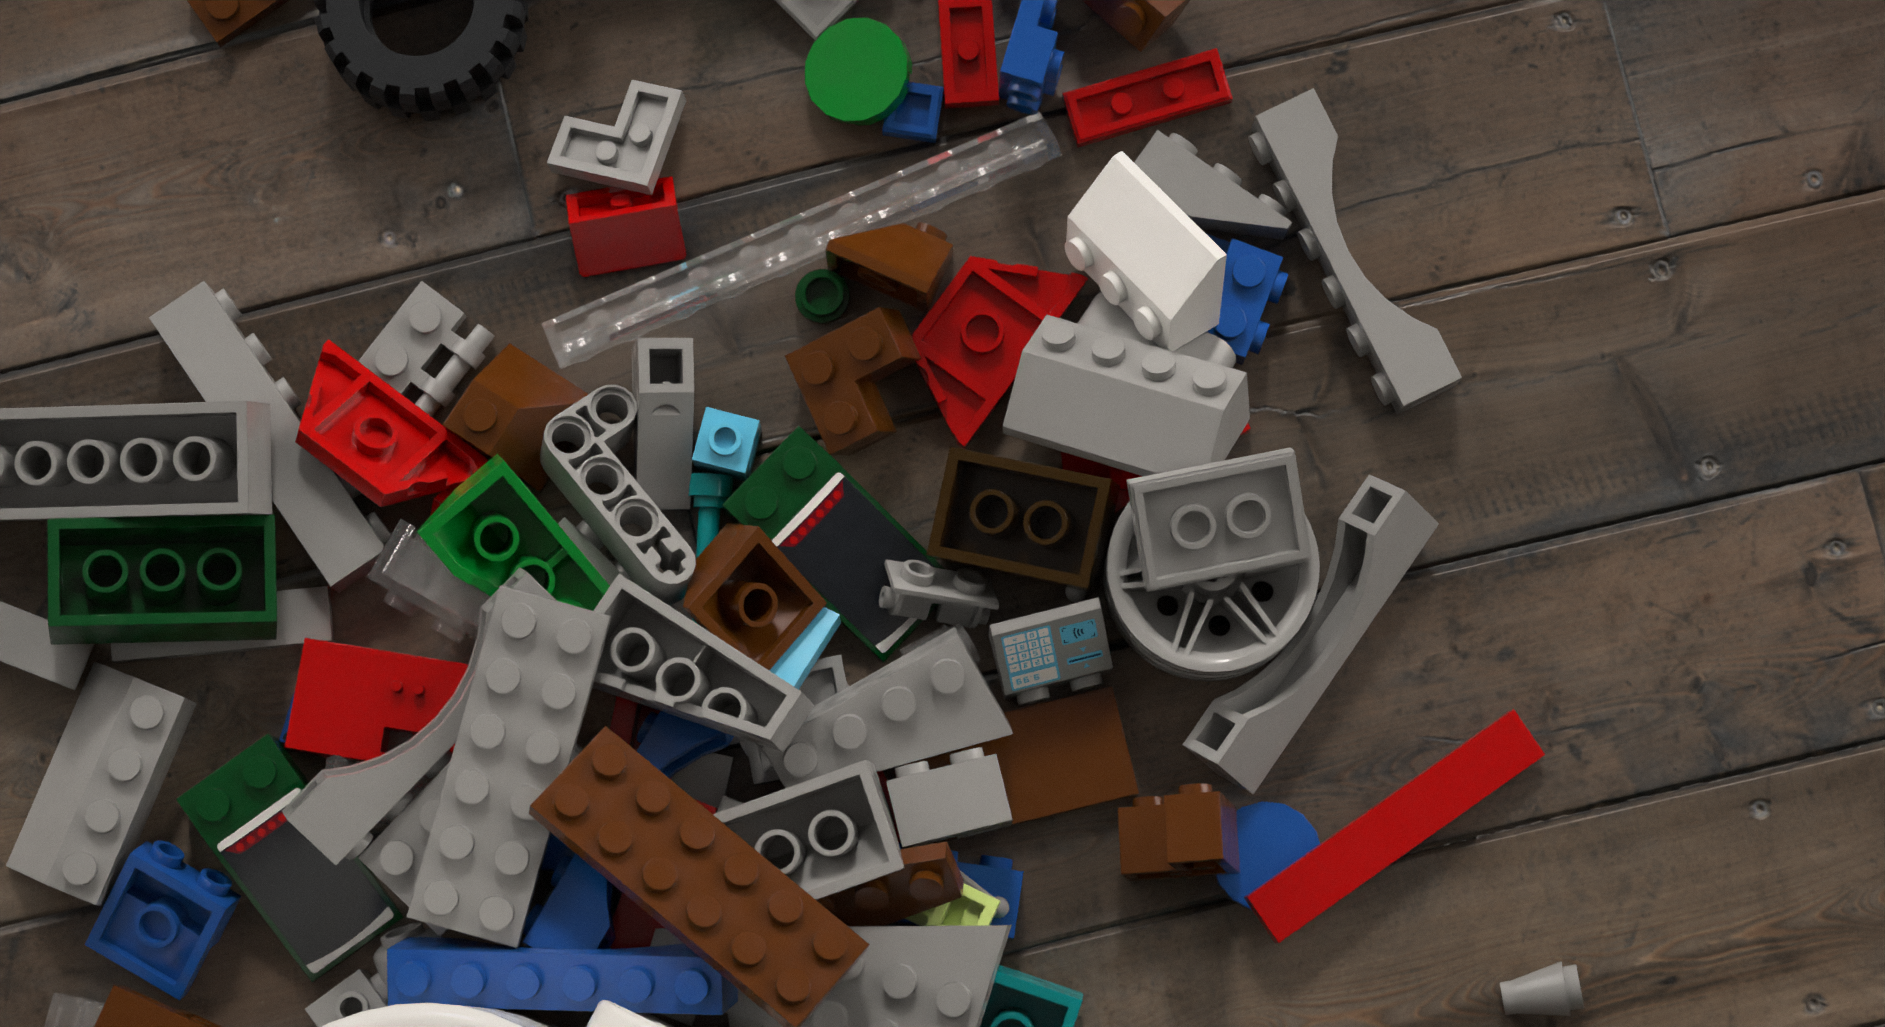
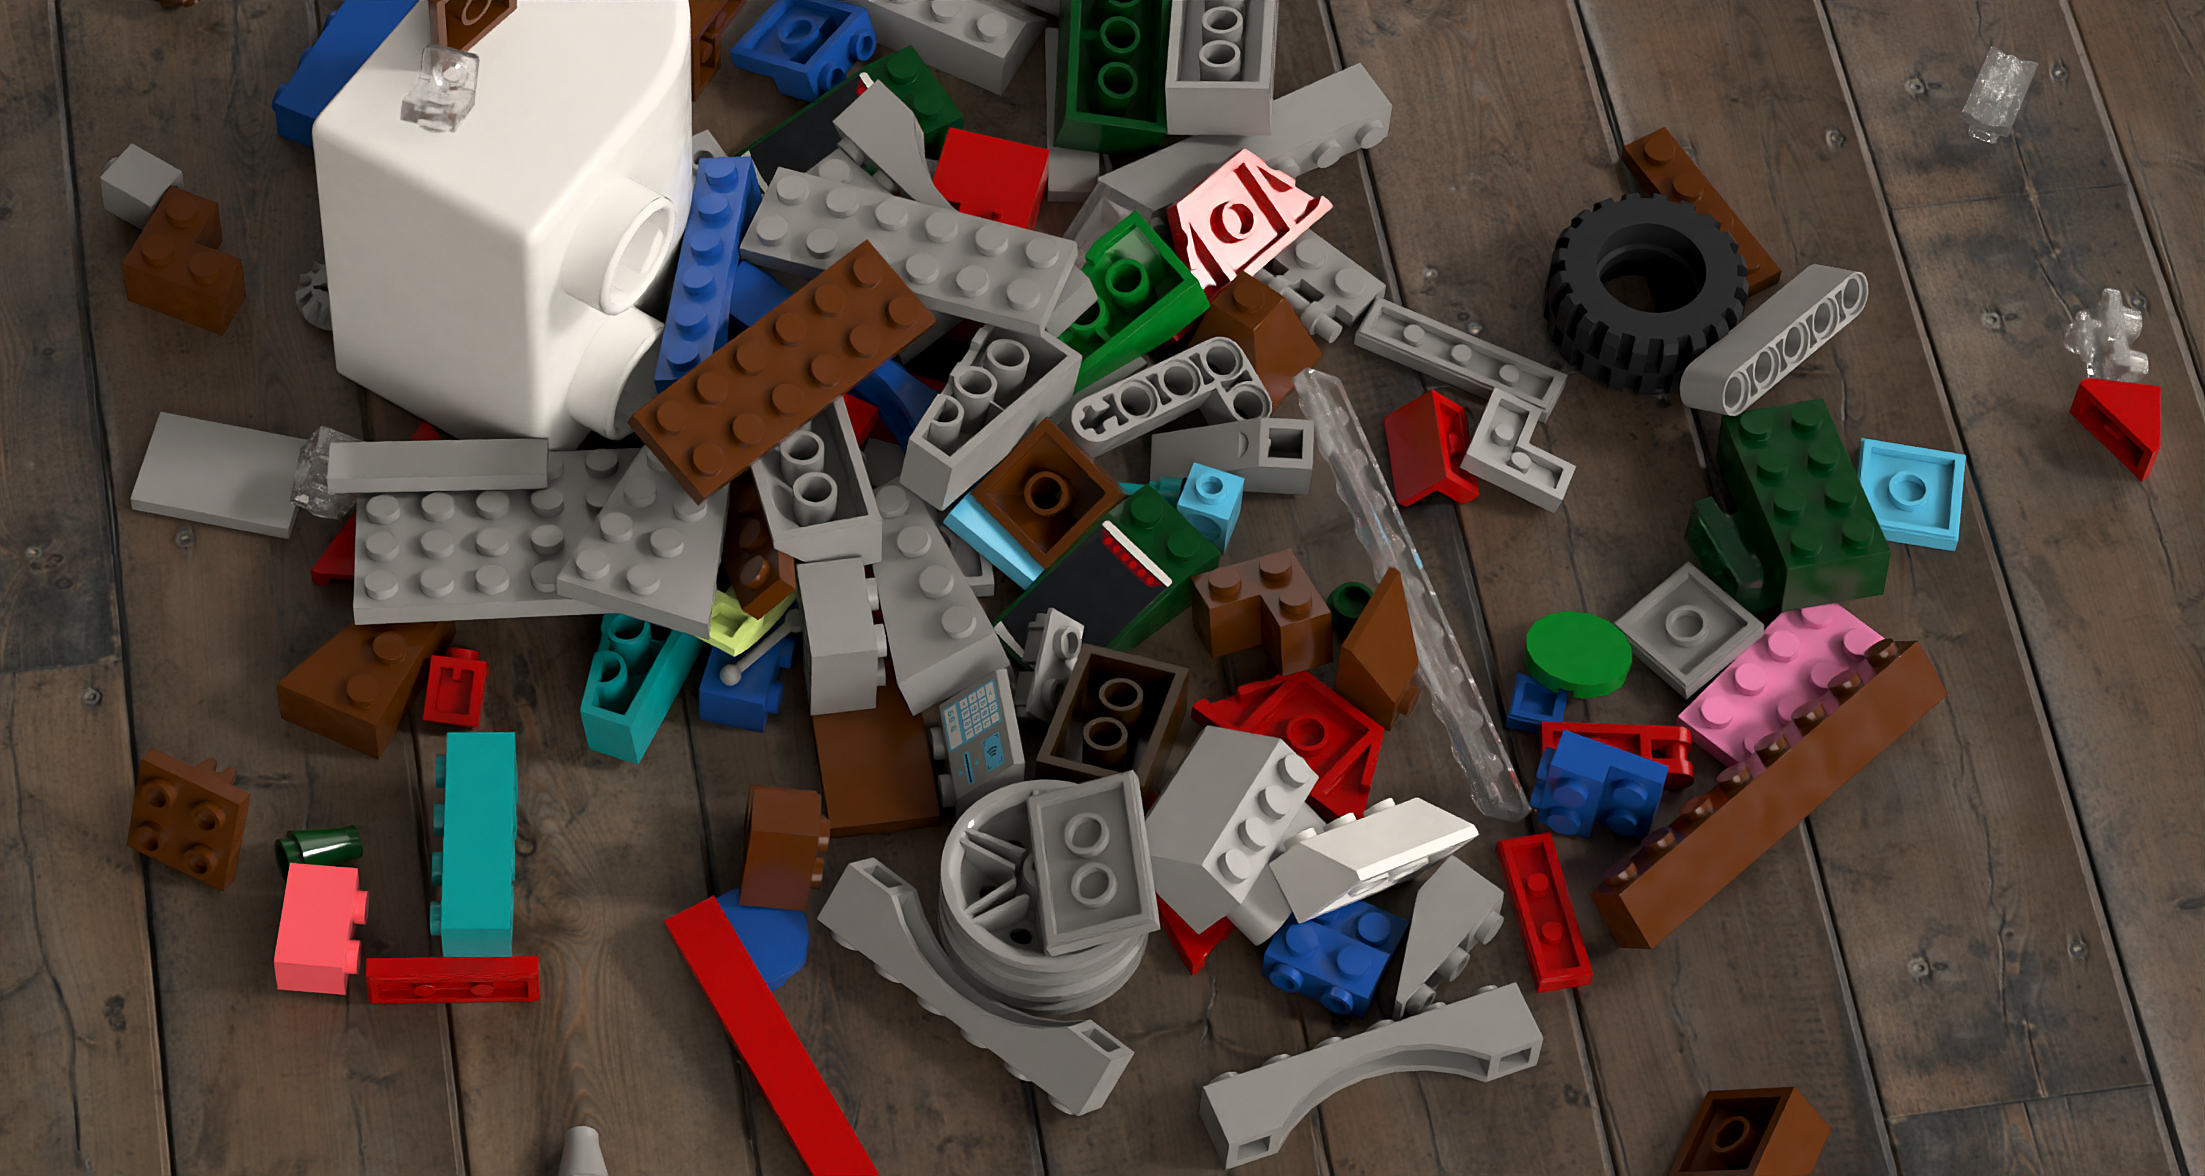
camera: 90 degrees right, 25 degrees down
(500, 203) = (1457, 356): none -> light grey tile

